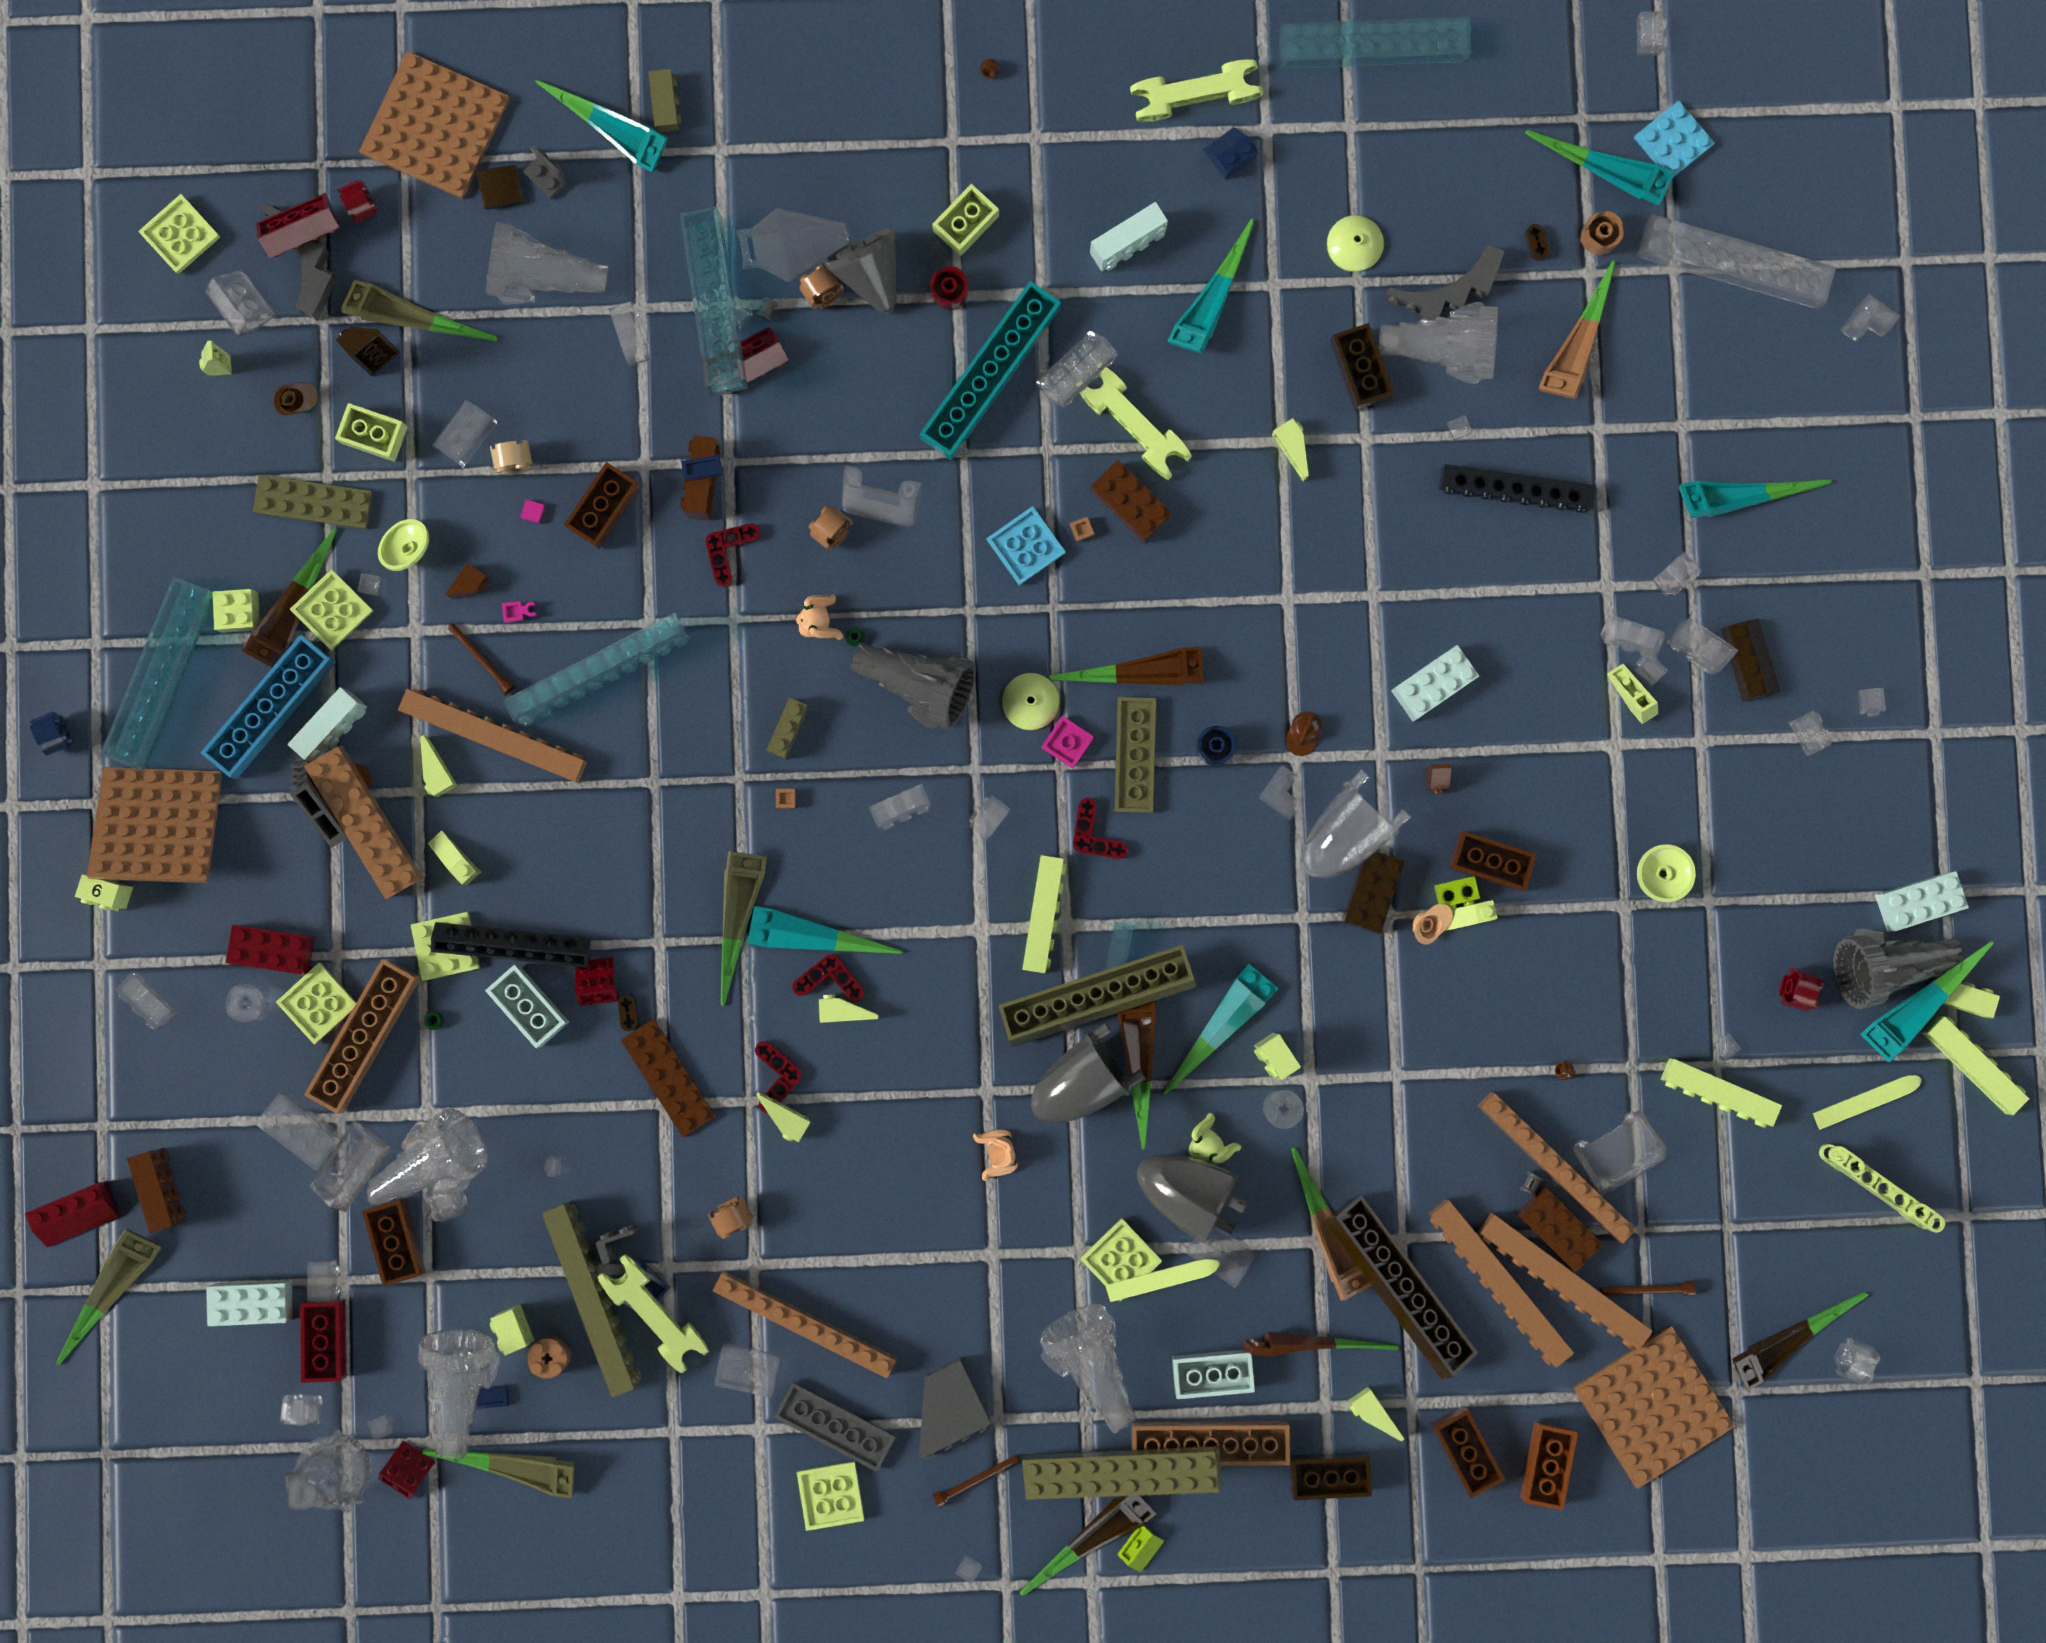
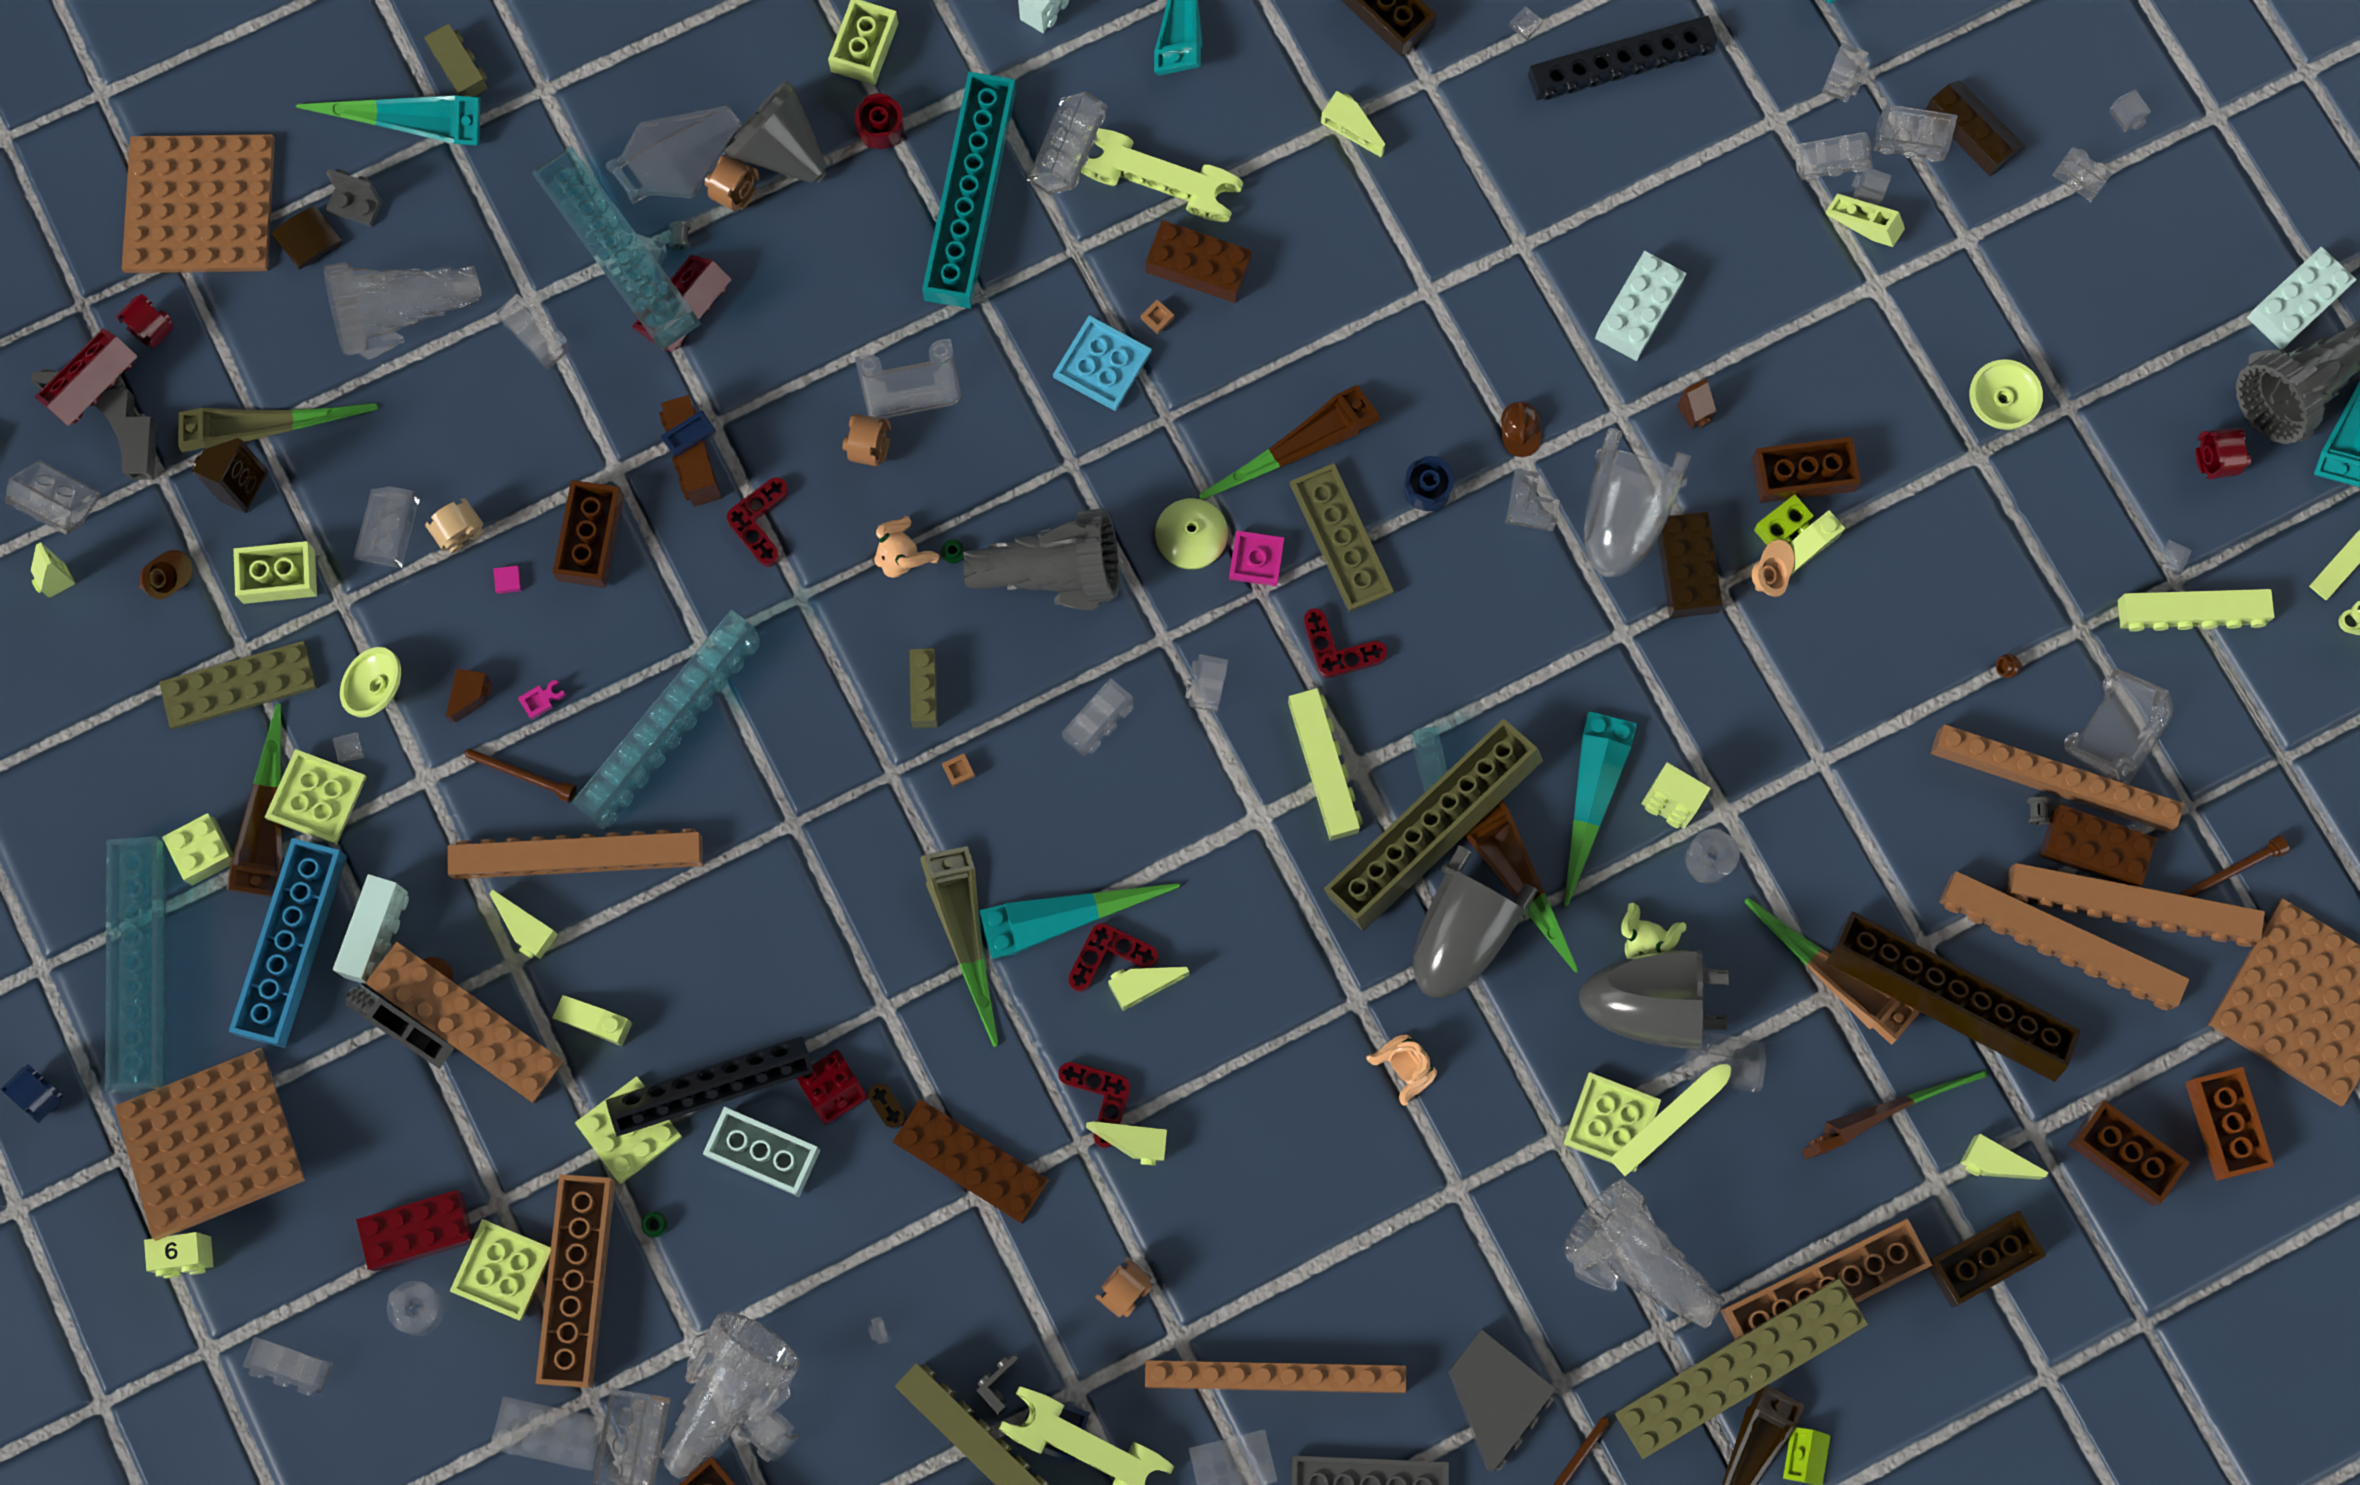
camera: 25 degrees left, 10 degrees down
(1213, 1374) = (1787, 1203): light aqua brick -> none

